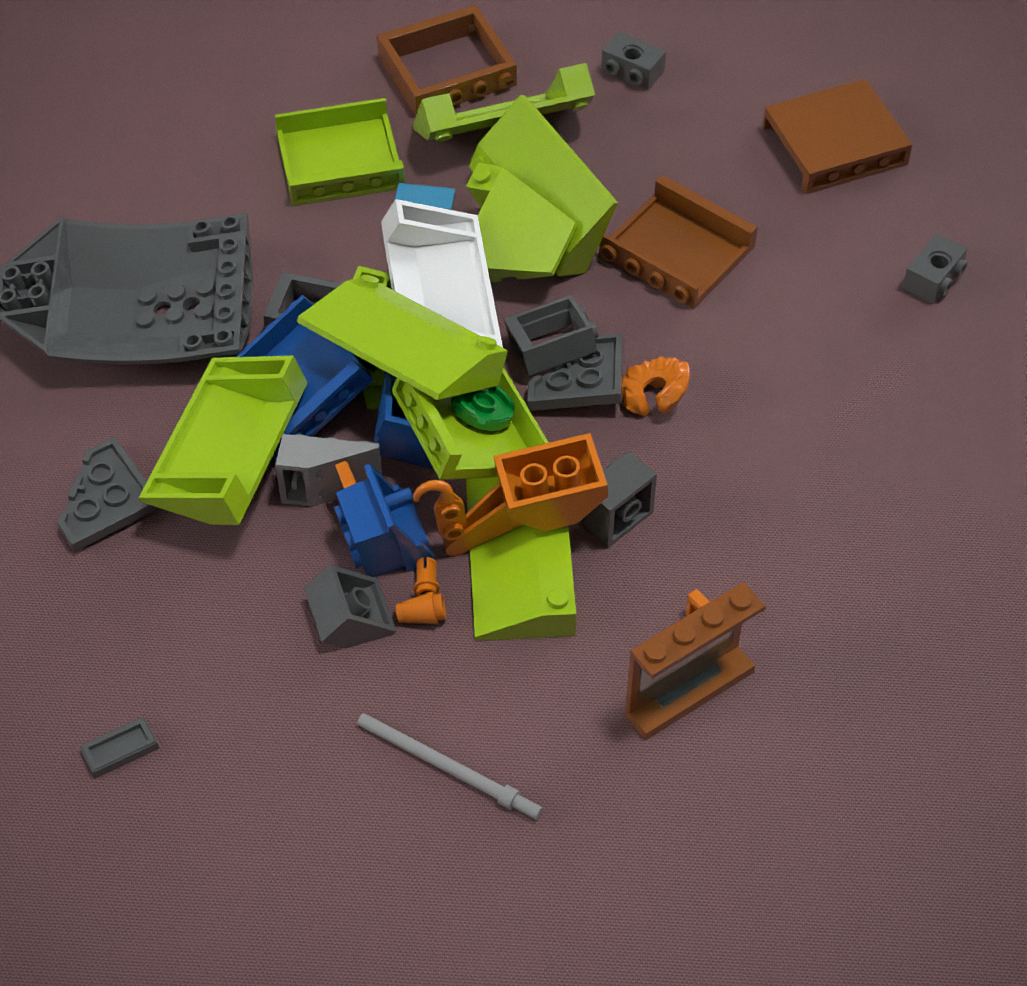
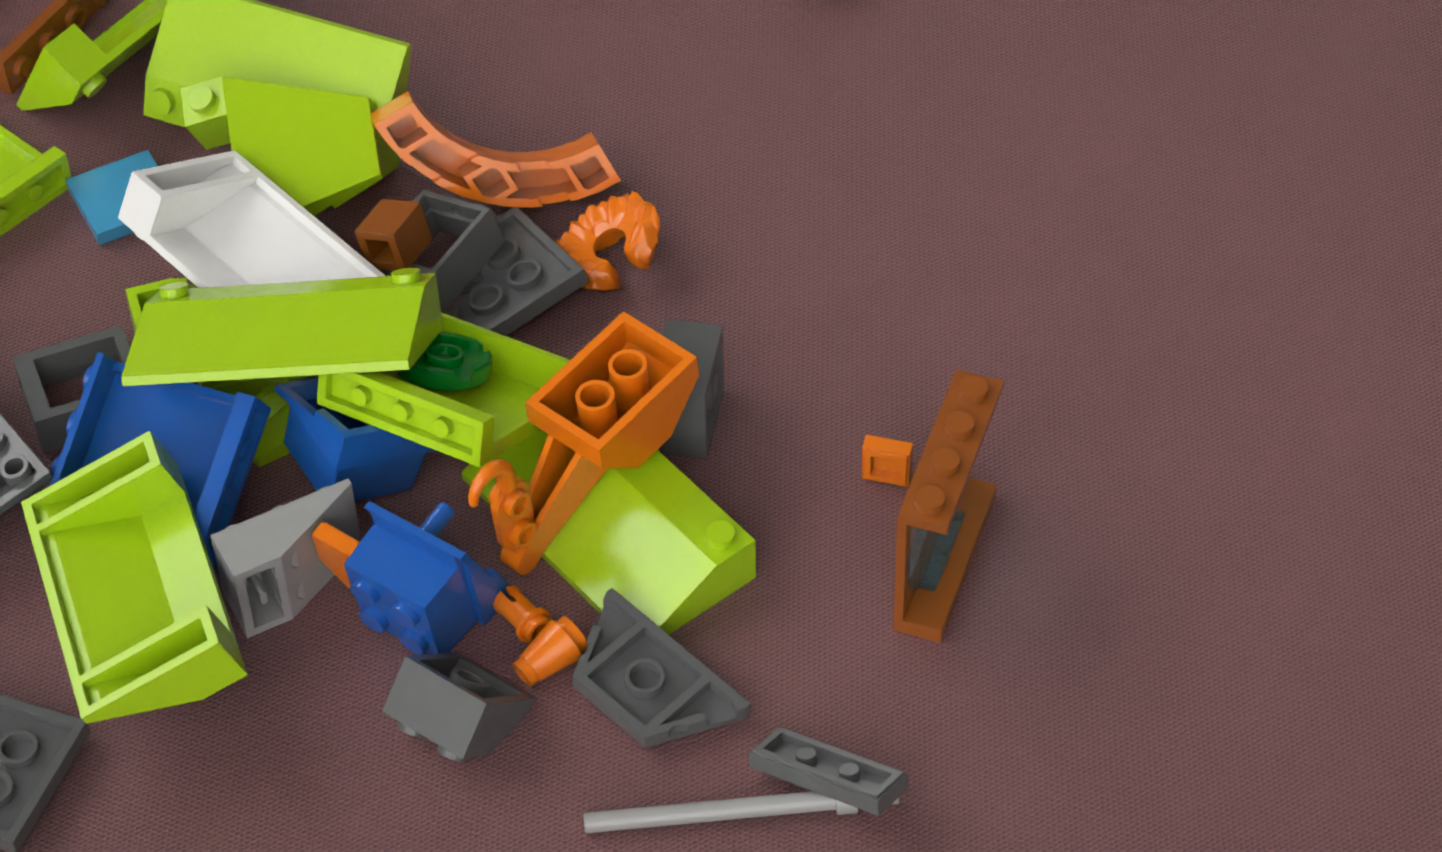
camera: 35 degrees left, 5 degrees down
(460, 659) = (651, 680): none -> dark grey wing
(508, 775) = (828, 770): none -> dark grey tile
(526, 313) = (394, 234): none -> dark orange brick
(618, 304) = (492, 174): none -> orange brick
(680, 243) = (495, 67): dark orange panel -> none

